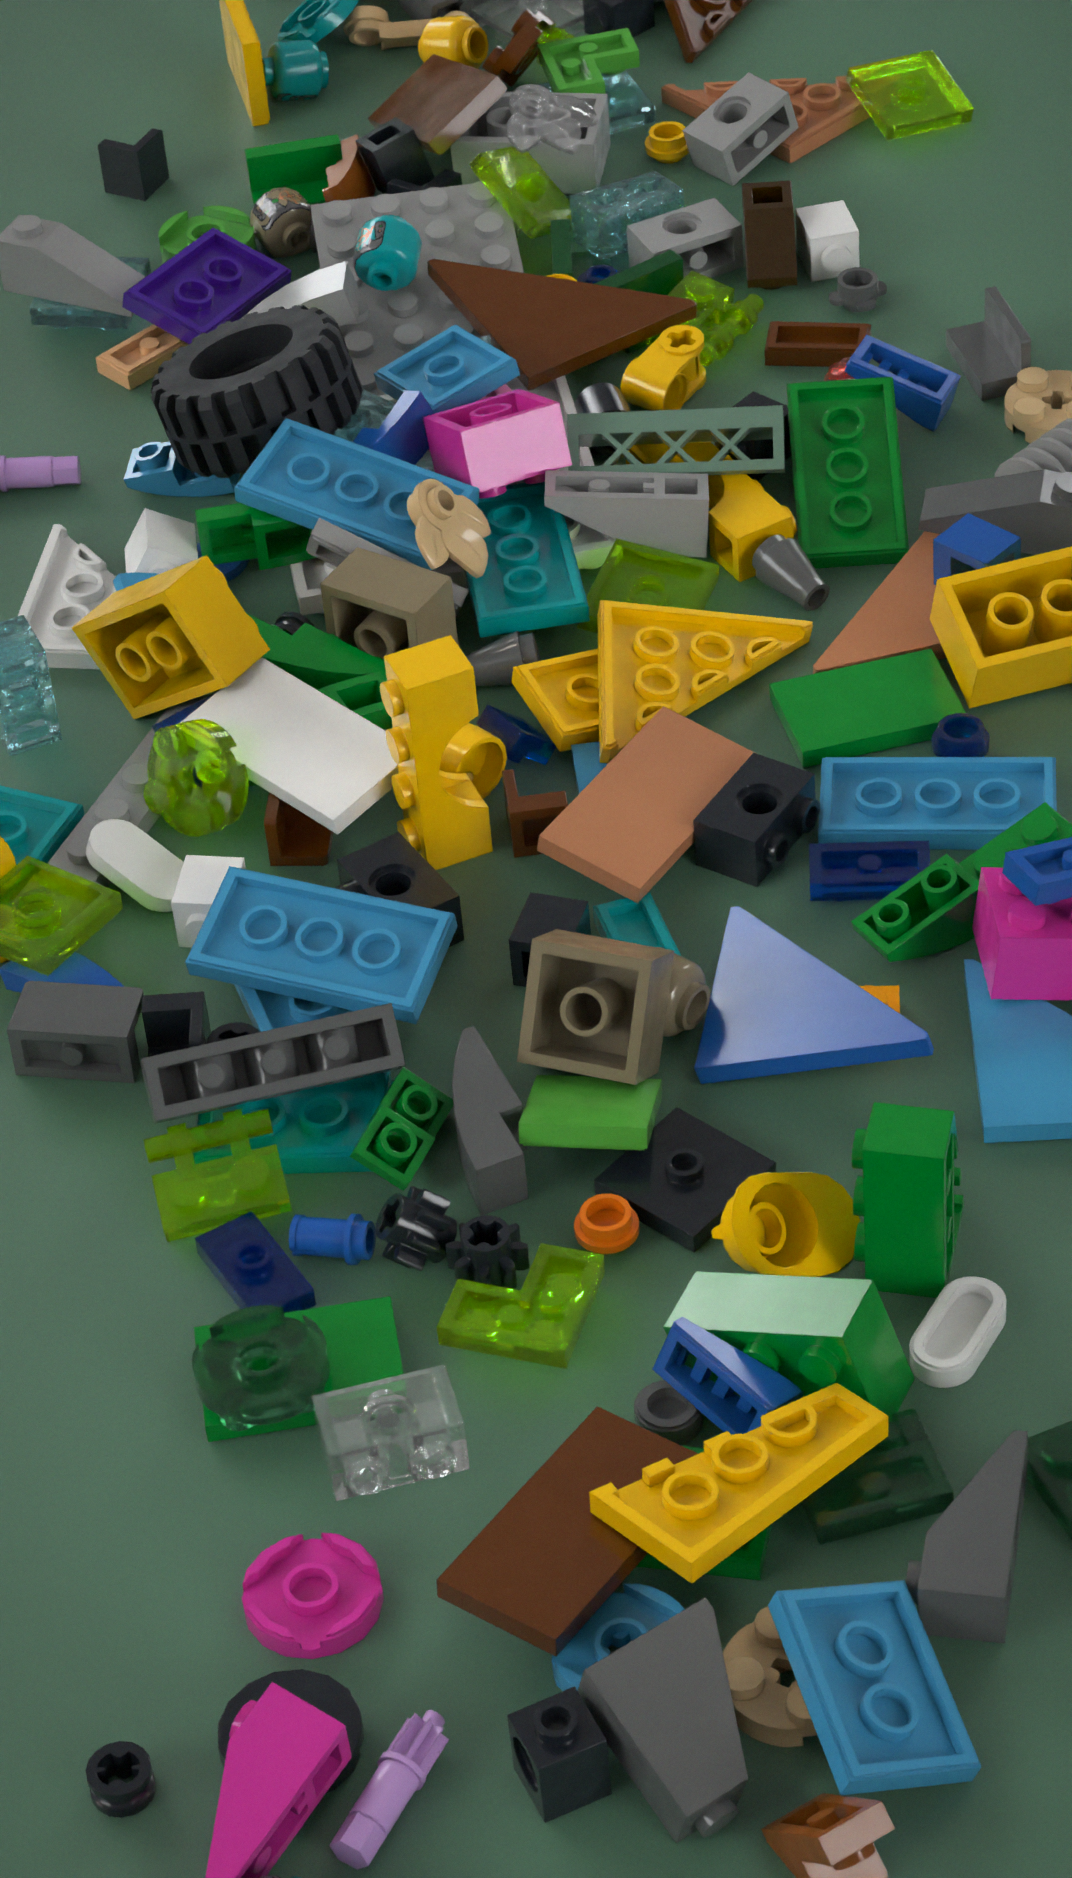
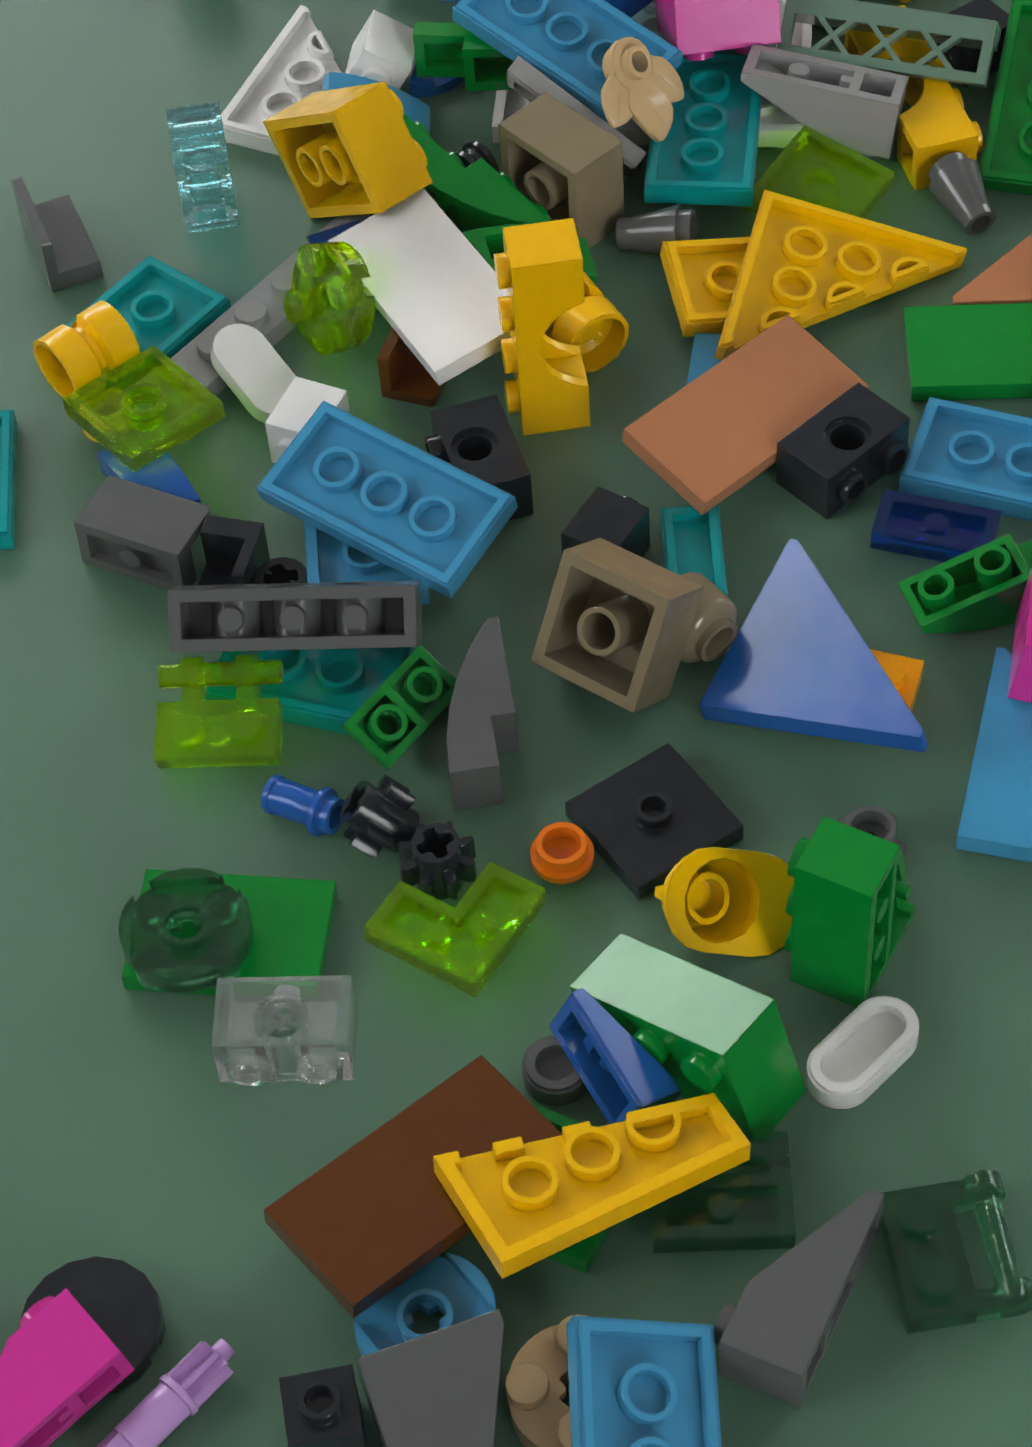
camera: 15 degrees right, 10 degrees up
(254, 1266) = (224, 819): clear blue plate -> none
(312, 1595) = (162, 1180): dark pink tile -> none
(517, 735) = (646, 312): plate -> none
(529, 815) = (629, 399): reddish brown panel -> none
(590, 1113) = (581, 732): bright green tile -> none

